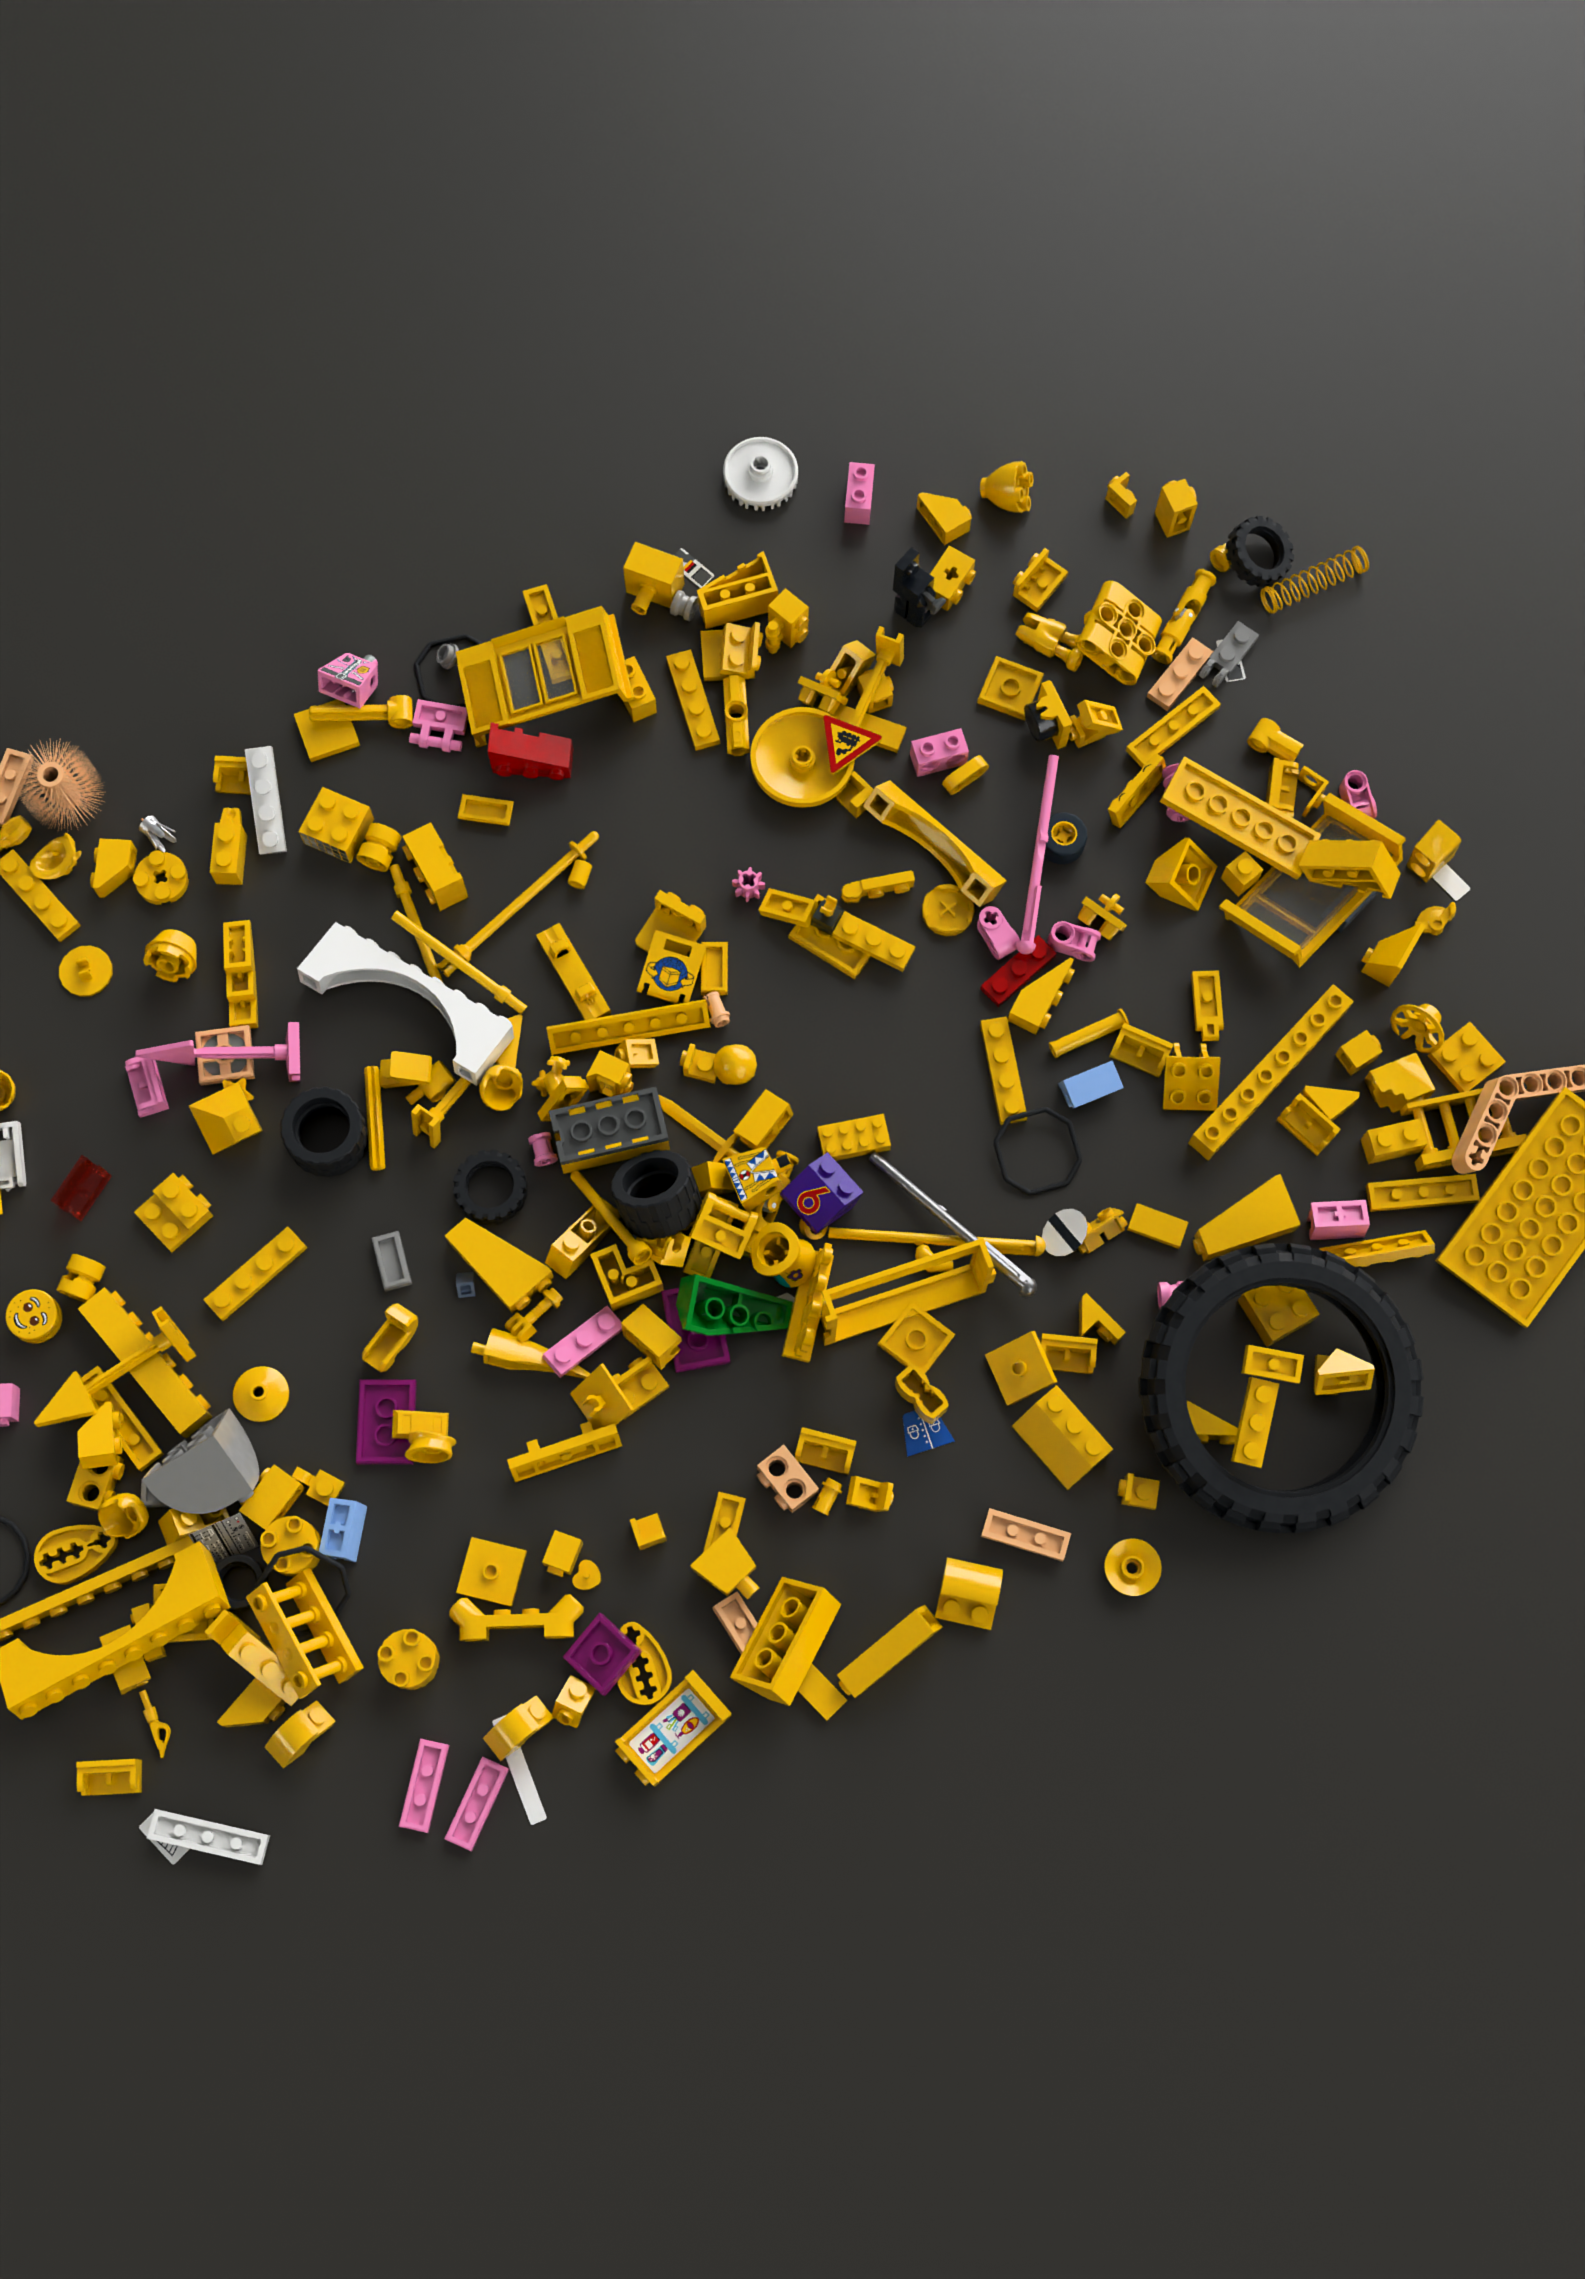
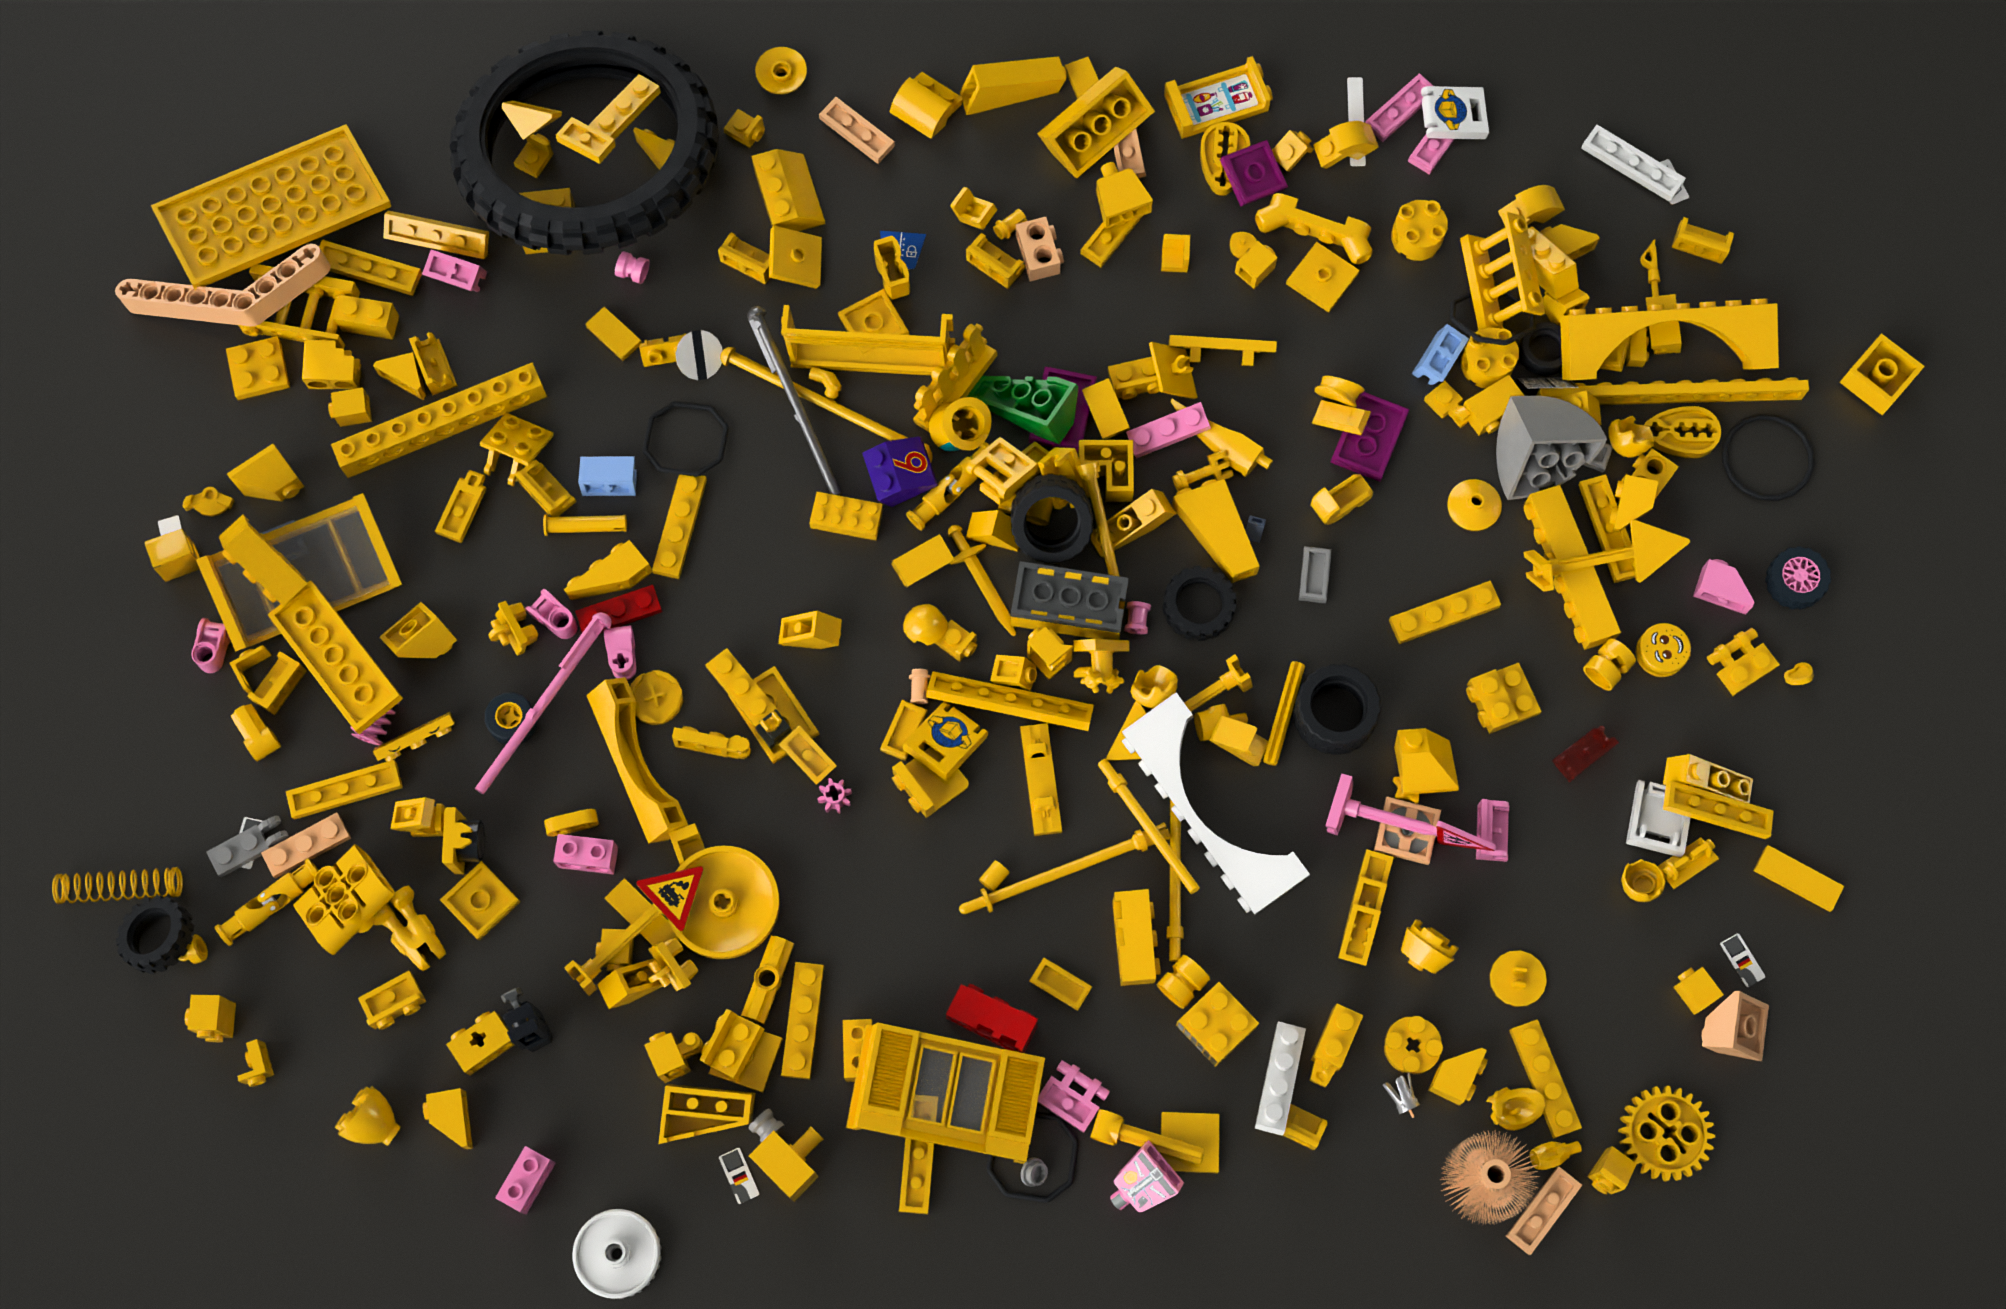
camera: 155 degrees left, 0 degrees up
(420, 1813) = (1451, 112): none -> white container
(756, 1175) = (953, 503): yellow torso -> none
(836, 1017) = (810, 630): none -> yellow slope
(1093, 1315) = (712, 274): yellow slope -> none
(1242, 873) = (362, 612): yellow brick -> none
(1252, 1220) = (531, 302): yellow slope -> none
(1420, 1023) = (279, 408): yellow wheel -> none

